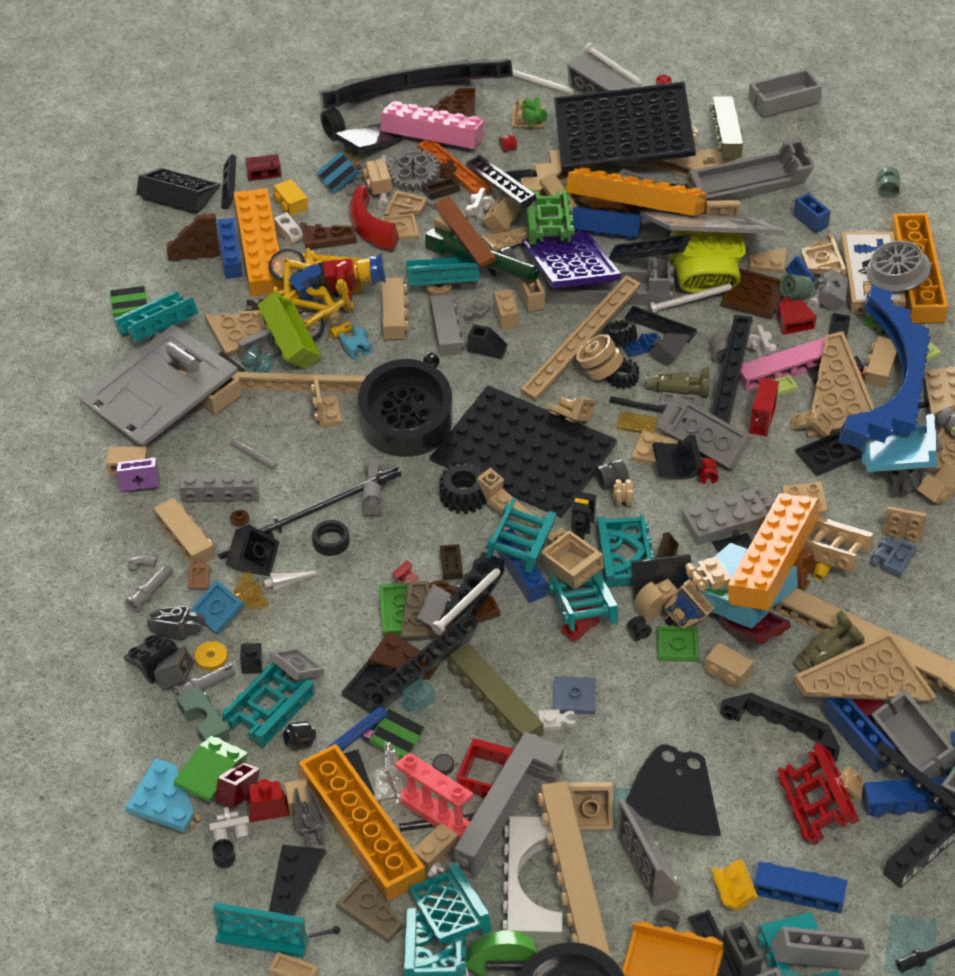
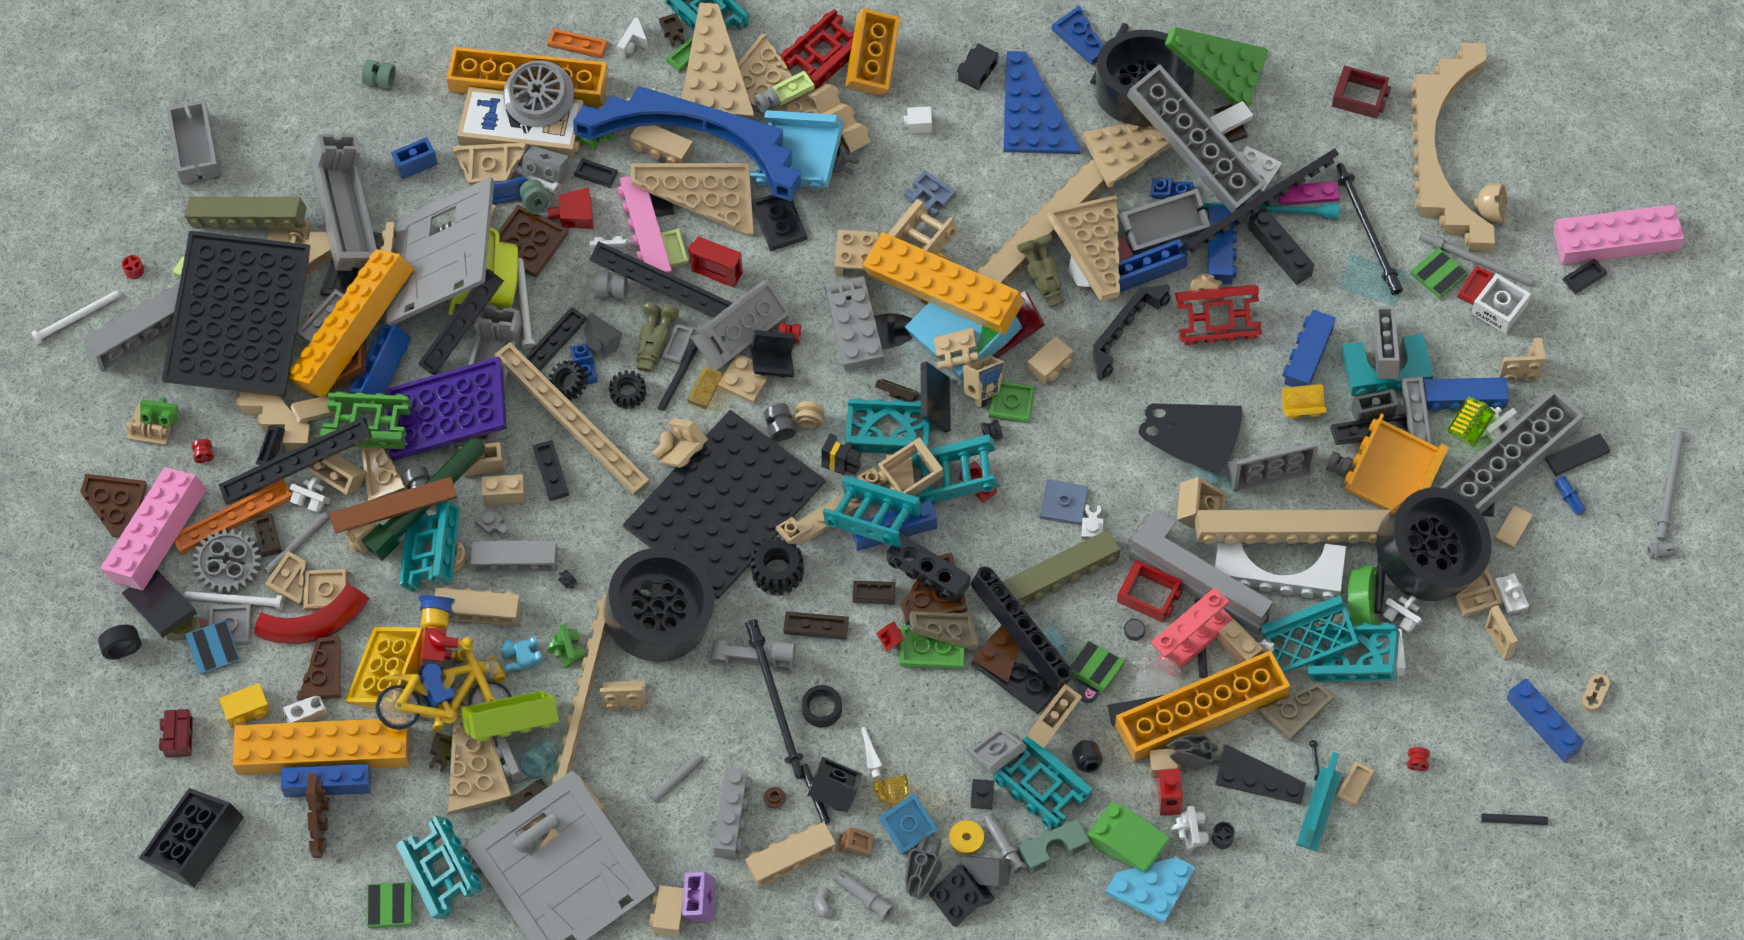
camera: 80 degrees left, 15 degrees up
(228, 184) = (195, 775): black tile -> none
(234, 784) = (1152, 811): dark red brick -> none
(332, 697) = (1054, 716): none -> tan brick
(360, 728) = (1097, 706): blue axle -> none
(365, 364) = (562, 646): none -> bright green hips
(377, 176) = (239, 599): tan brick -> none
(411, 525) = (816, 625): none -> dark brown plate
(433, 606) = (942, 605): light grey slope -> none
(439, 626) = (986, 602): white bar -> none
(444, 72) = (47, 494): black arch -> none
(447, 168) = (239, 521): reddish brown plant -> none
(486, 342) = (554, 517): black slope -> none
(533, 337) = (550, 470): none -> black plate
(542, 82) = (56, 435): white bar -> none
(599, 357) = (611, 403): tan wheel -> none
(652, 597) = (962, 408): tan brick -> none
(816, 418) = (740, 225): tan bracket -> none
(904, 523) = (893, 174): tan bracket -> none

